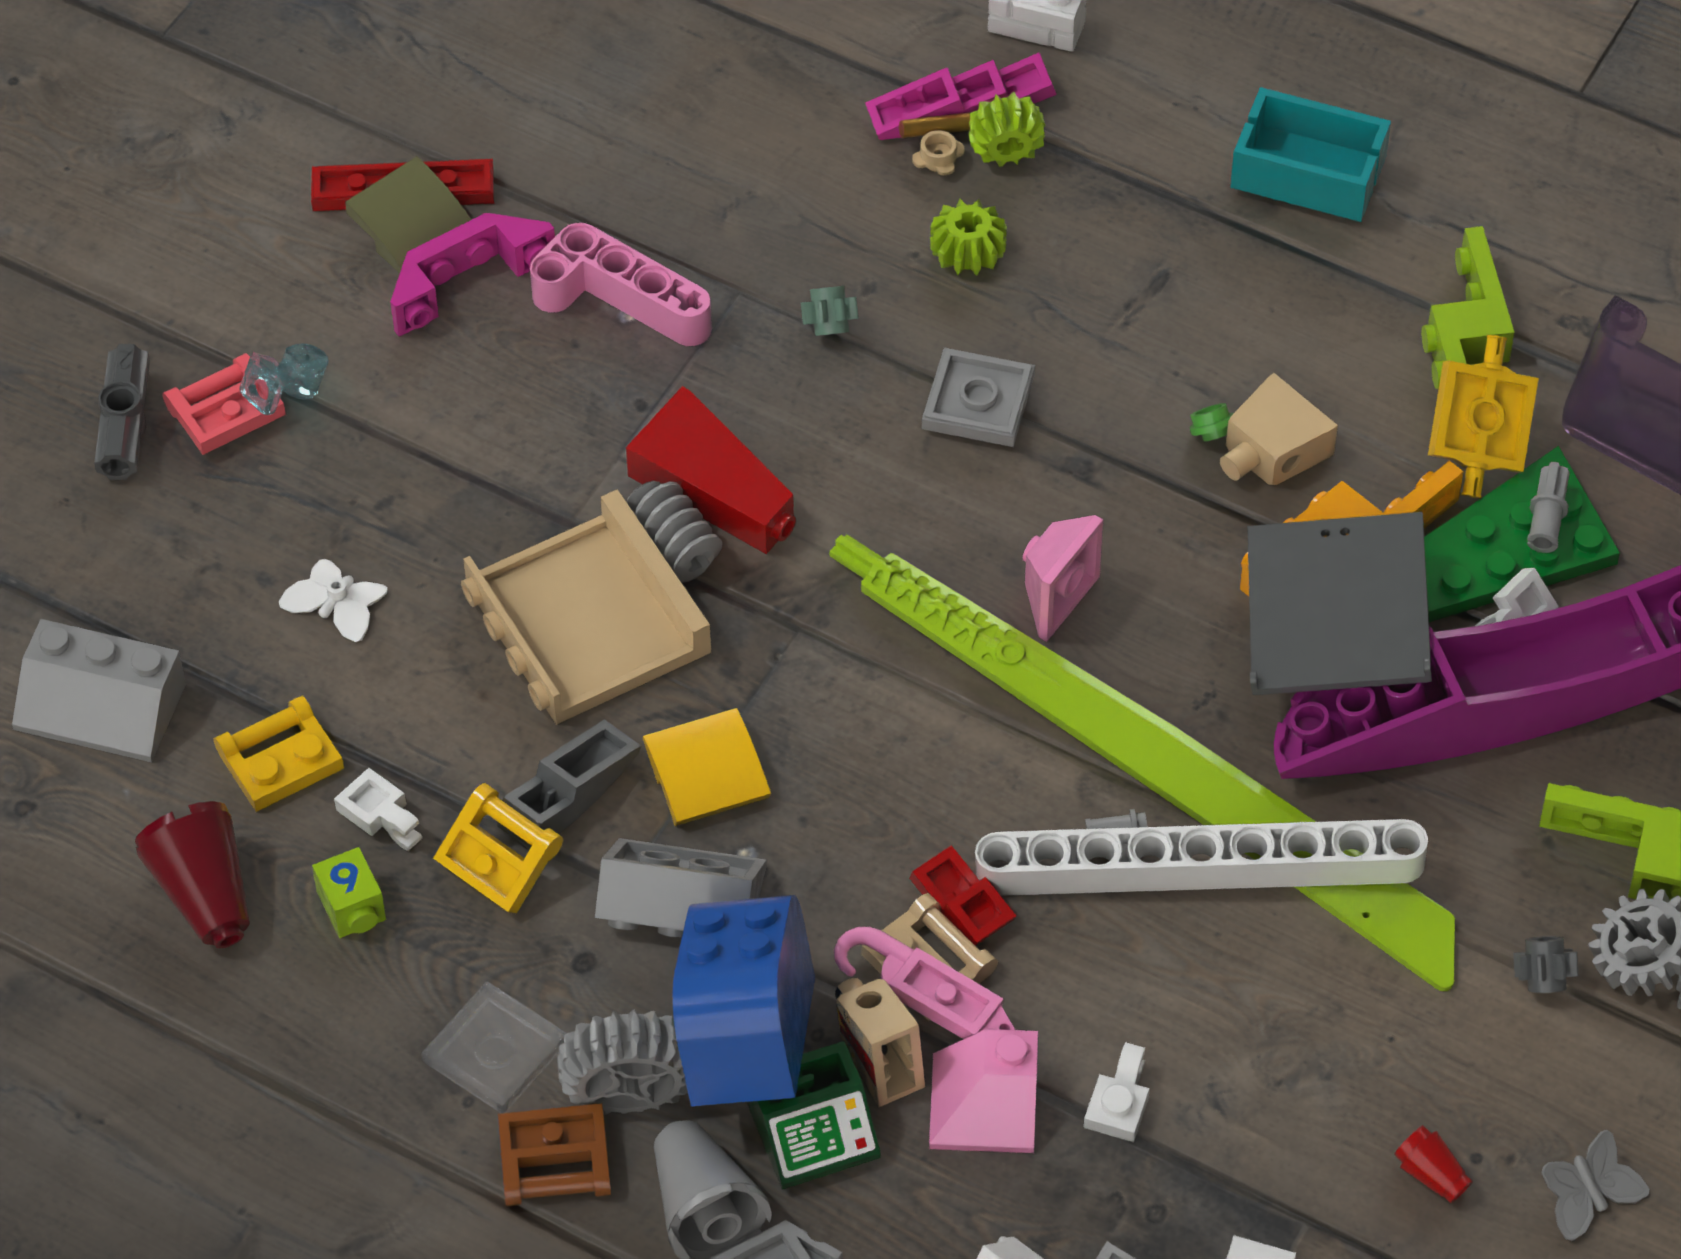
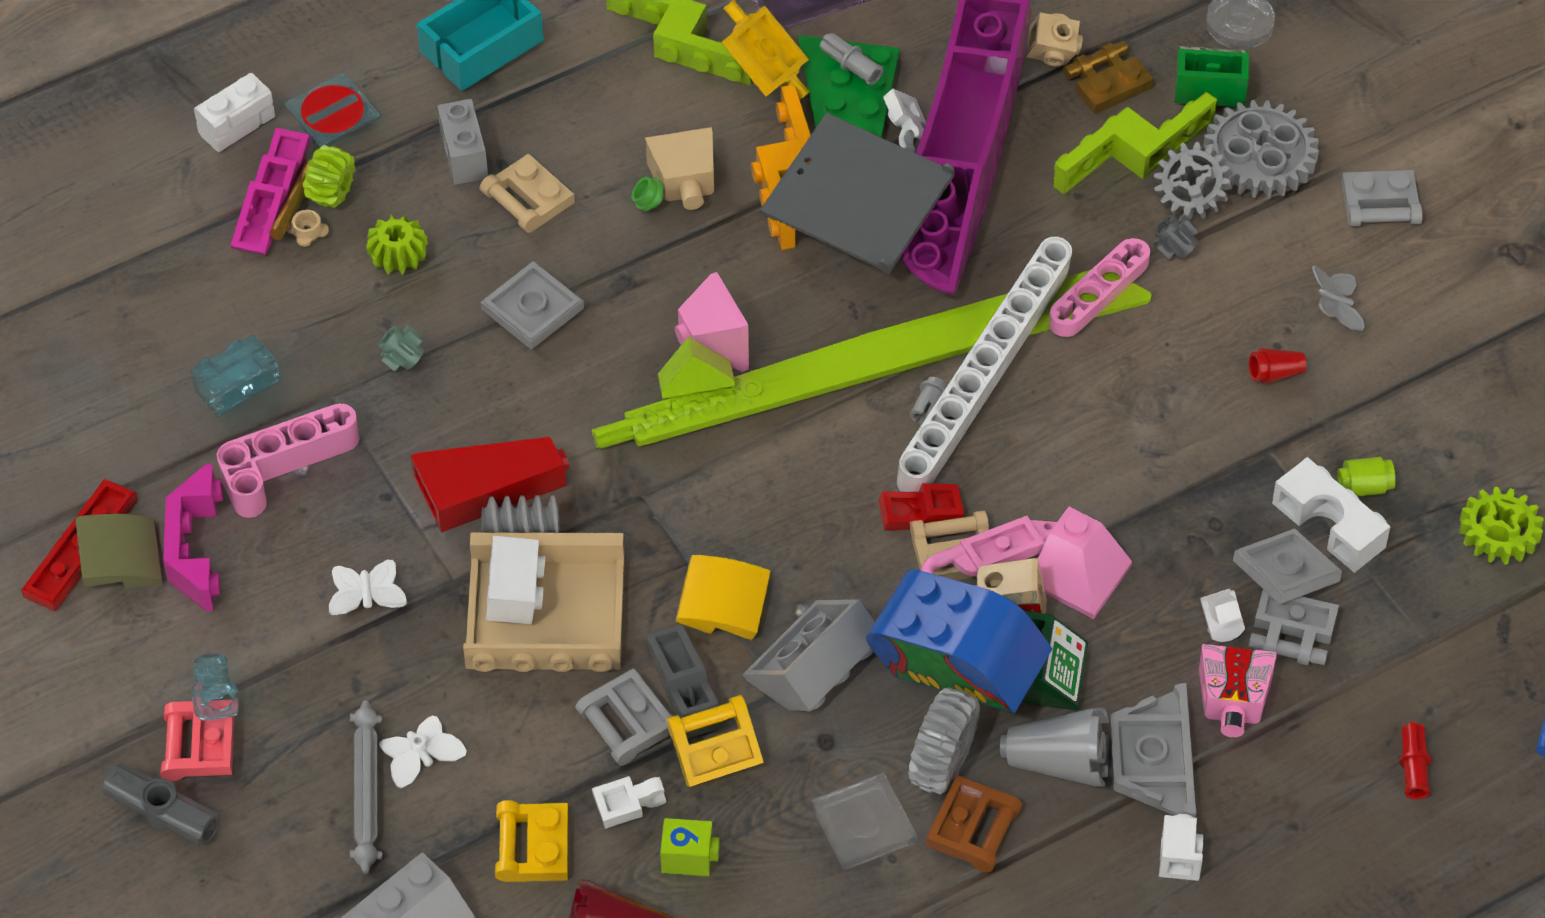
camera: 60 degrees left, 0 degrees up
(255, 572) = (365, 787): none -> light grey wheel
(502, 759) = (635, 707): none -> light grey plate
(503, 443) = (365, 587): none -> white piece
(582, 558) = (513, 580): none -> white brick
(694, 192) = (235, 375): none -> clear light blue brick
(993, 589) = (694, 370): none -> lime slope
(1107, 89) = (332, 110): none -> piece
(1118, 1101) = (1126, 501): white plate -> none
(1147, 323) = (534, 186): none -> tan plate
(1150, 219) = (462, 141): none -> light grey brick
(1413, 915) = (1097, 285): none -> bright pink beam

